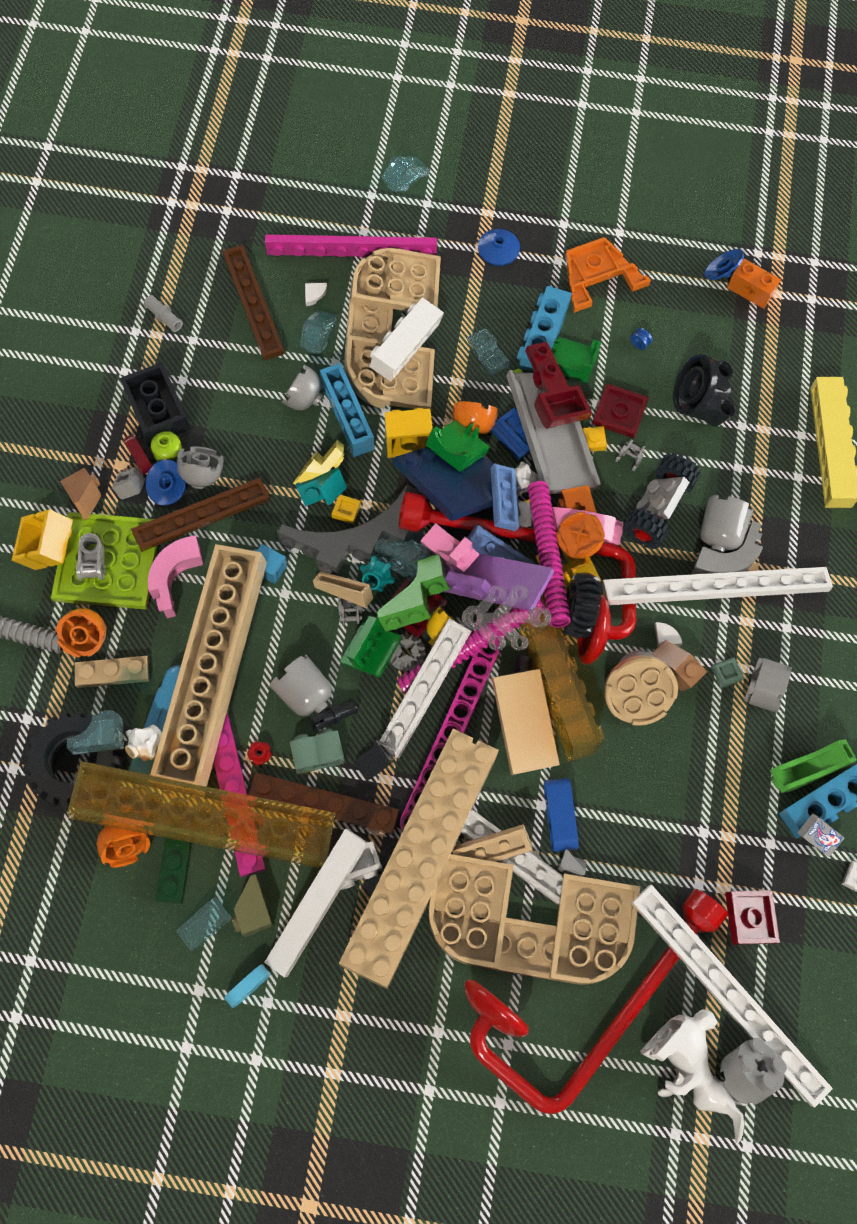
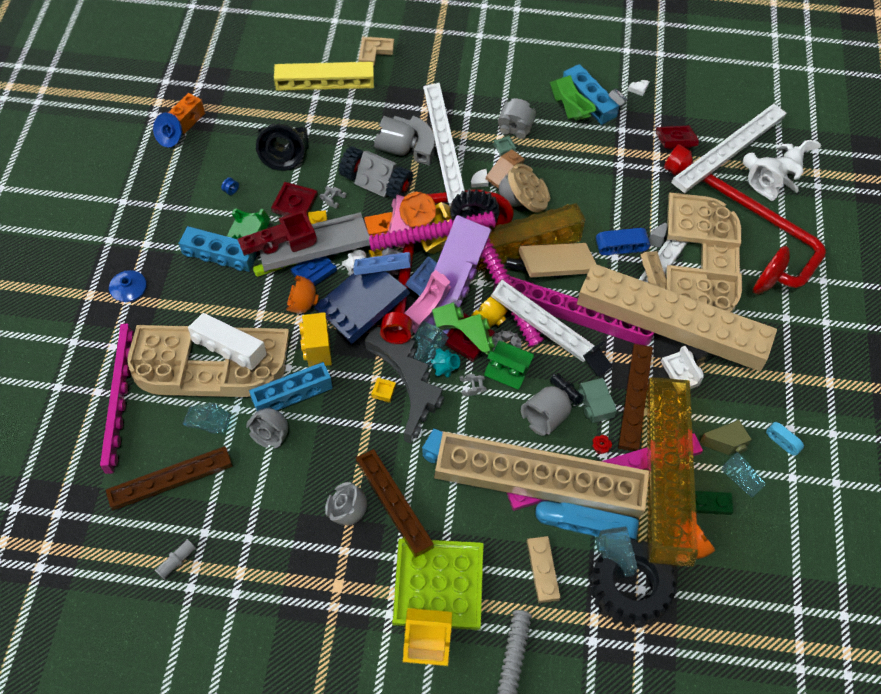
camera: 90 degrees left, 10 degrees down
(81, 632) = (514, 590): orange cylinder -> none
(82, 491) = (373, 609): medium nougat slope -> none
(90, 563) = (445, 589): light grey piece -> none
(128, 483) = (359, 573): light grey slope -> none
(137, 454) = (330, 566): dark red beam -> none
(143, 742) = (613, 518): white rock -> none
(155, 402) = (280, 551): black brick -> none
(158, 483) = (368, 544): blue dish -> none
(165, 446) = (326, 538): lime head -> none
(167, 565) = (445, 529): bright pink arch -> none
(314, 292) = (162, 427): white tile -> none
(316, 903) = (718, 388): white tile -> none
(319, 465) = (345, 406): light yellow plate -> none
(326, 486) = (364, 403): teal slope -> none
(344, 588) = (457, 386): tan piece -> none
(404, 172) = (42, 355): clear light blue arch -> none
(457, 445) = (332, 299): green piece -> none
(487, 352) = (231, 293): clear light blue slope -> none
(502, 617) = (494, 252): clear plant -> none
(597, 263) = (155, 215): orange wing -> none
(753, 1072) = (776, 136): light grey brick -> none

